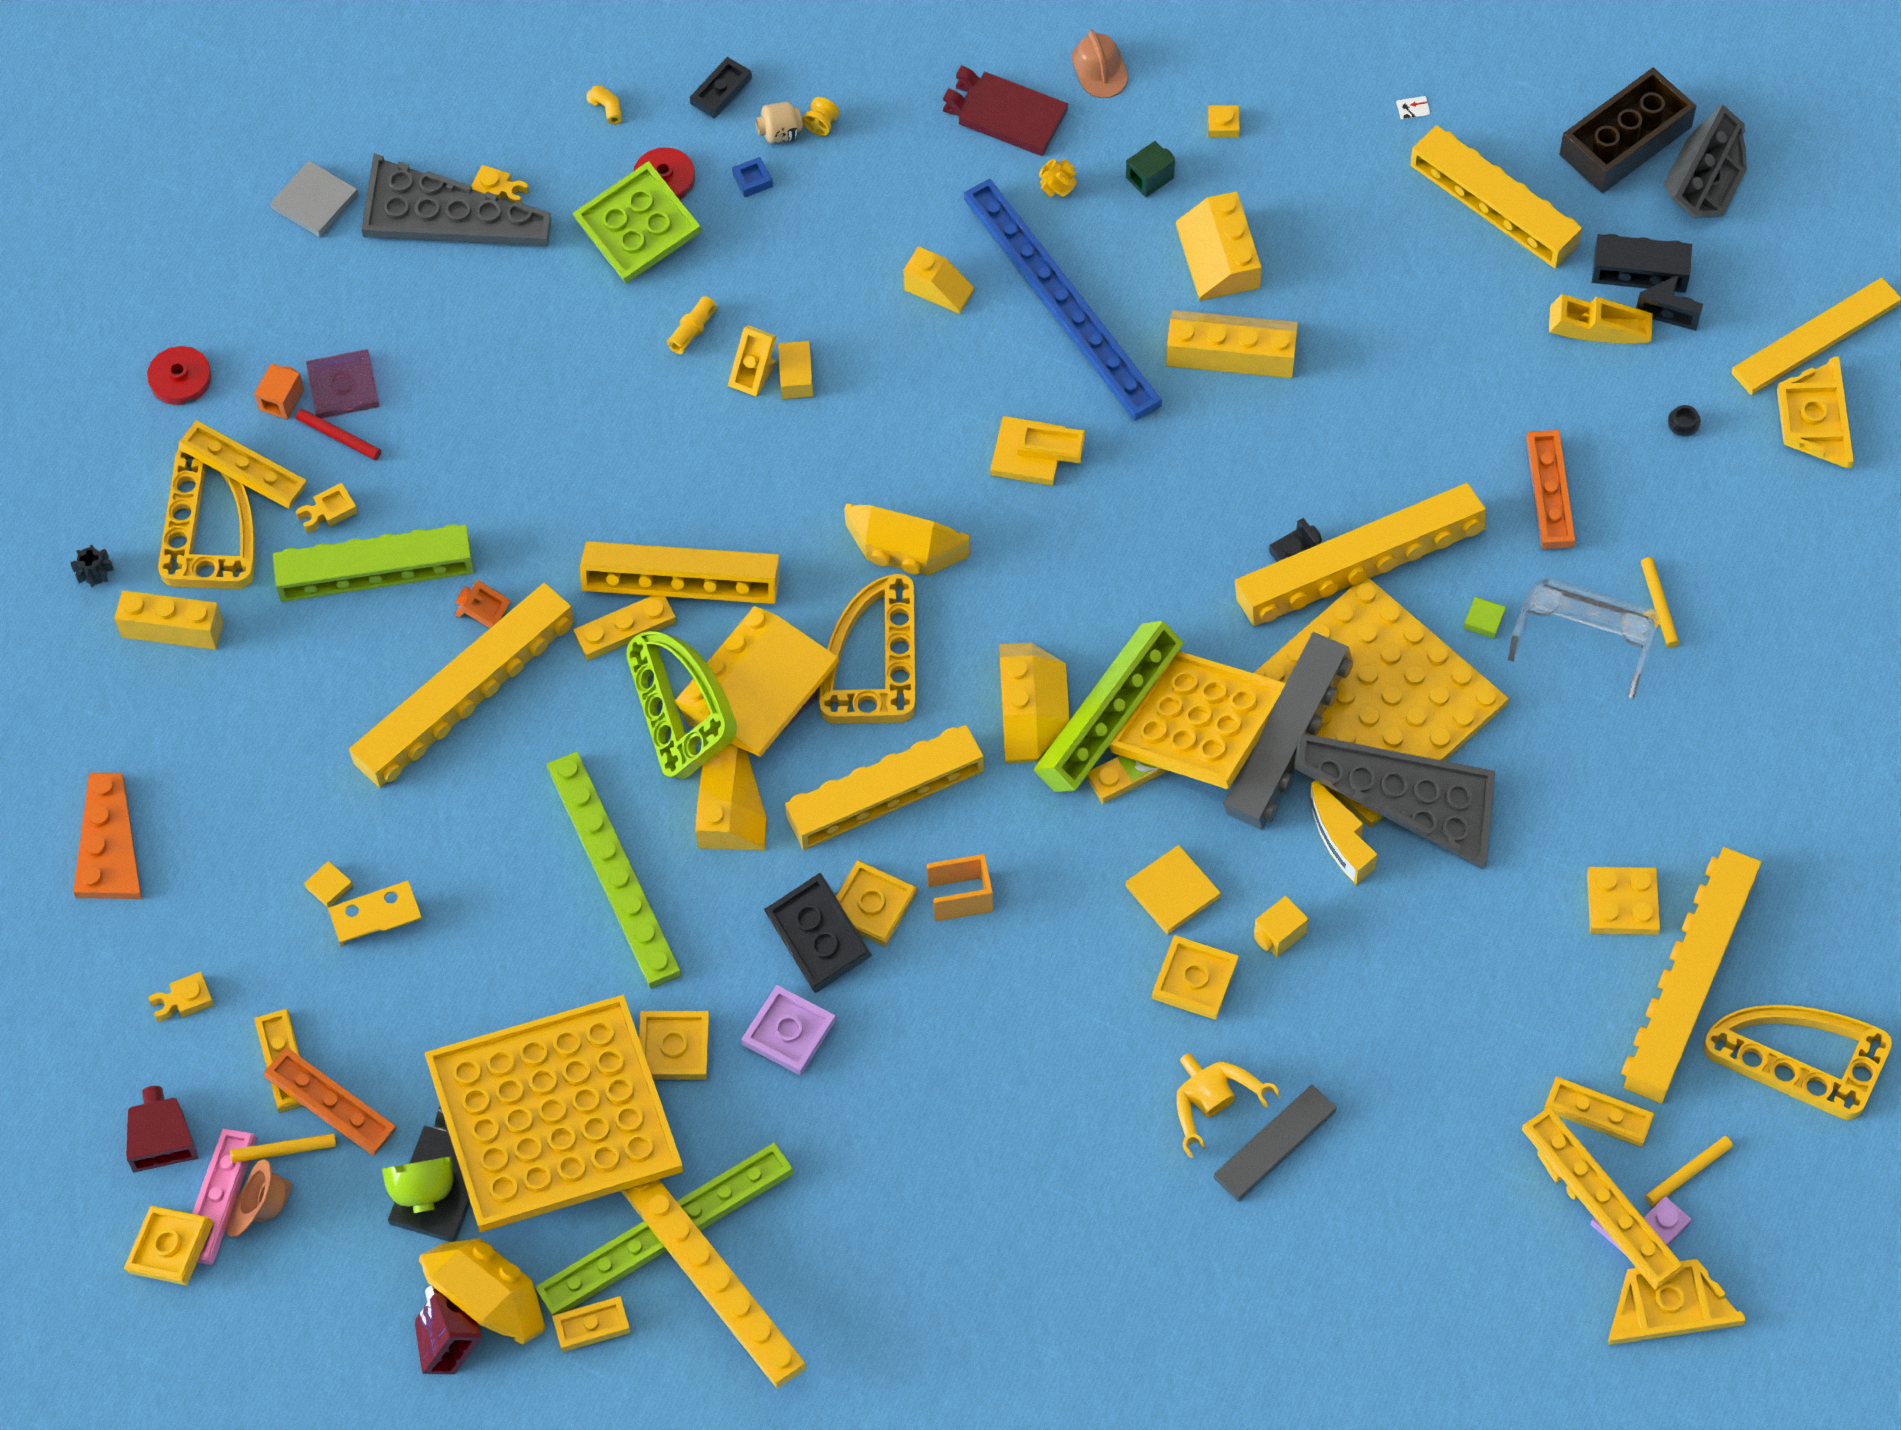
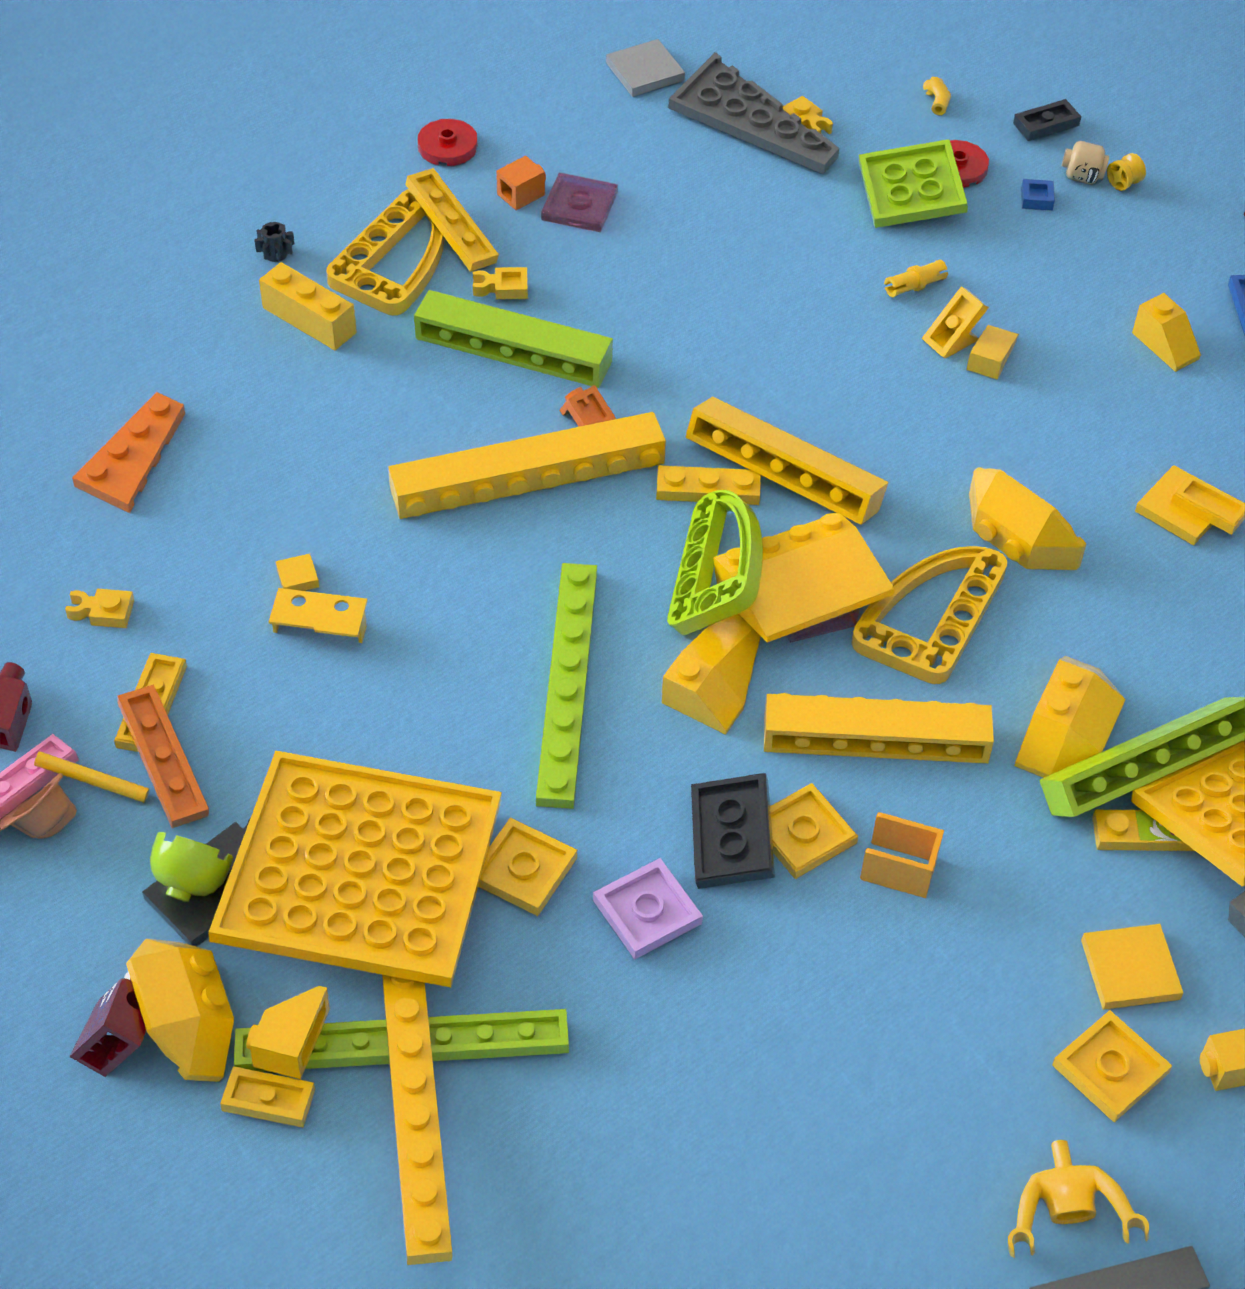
camera: 25 degrees right, 10 degrees down
(338, 434) = (551, 236): red bar -> none
(582, 1270) = (289, 1033): none -> yellow slope

